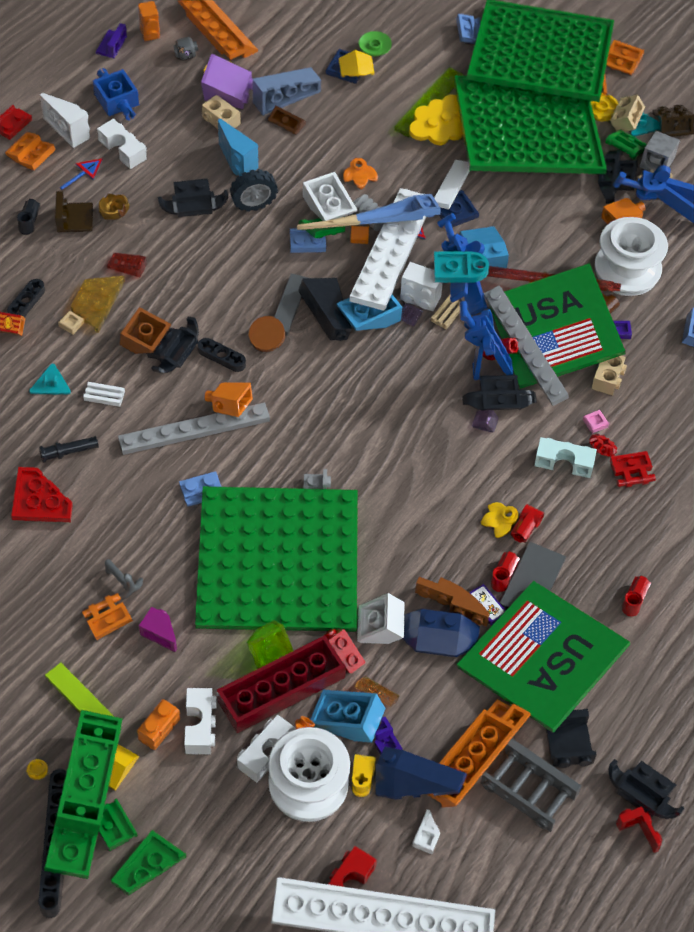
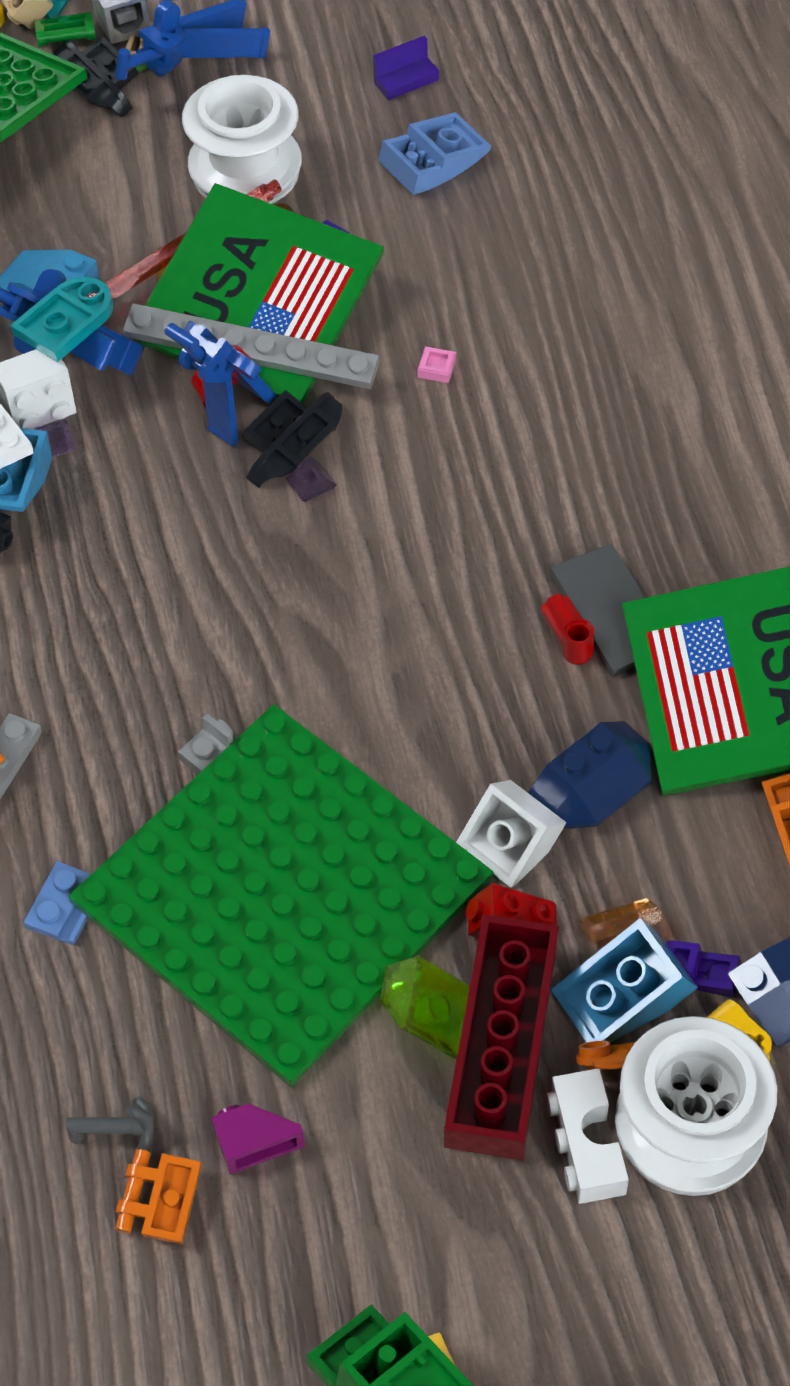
camera: 45 degrees left, 0 degrees up
(74, 690) = (250, 1344): lime tile -> none
(158, 724) = (418, 1260): orange brick -> none
(199, 737) = (438, 1172): white arch -> none
(442, 308) = (93, 376): tan tile -> none
(456, 597) = (566, 712): dark orange slope -> none
(491, 604) = (599, 687): tile -> none
(497, 518) = (480, 577): yellow plate -> none
(528, 520) = (517, 542): red piece -> none
(580, 457) = (481, 418): light aqua arch -> none
(603, 445) = (484, 380): red gear -> none
(608, 375) = (387, 299): tan brick -> none
(622, 209) = (161, 110): orange torso -> none
(631, 464) = (540, 374): red plate -> none
(635, 595) = (745, 514): red piece -> none

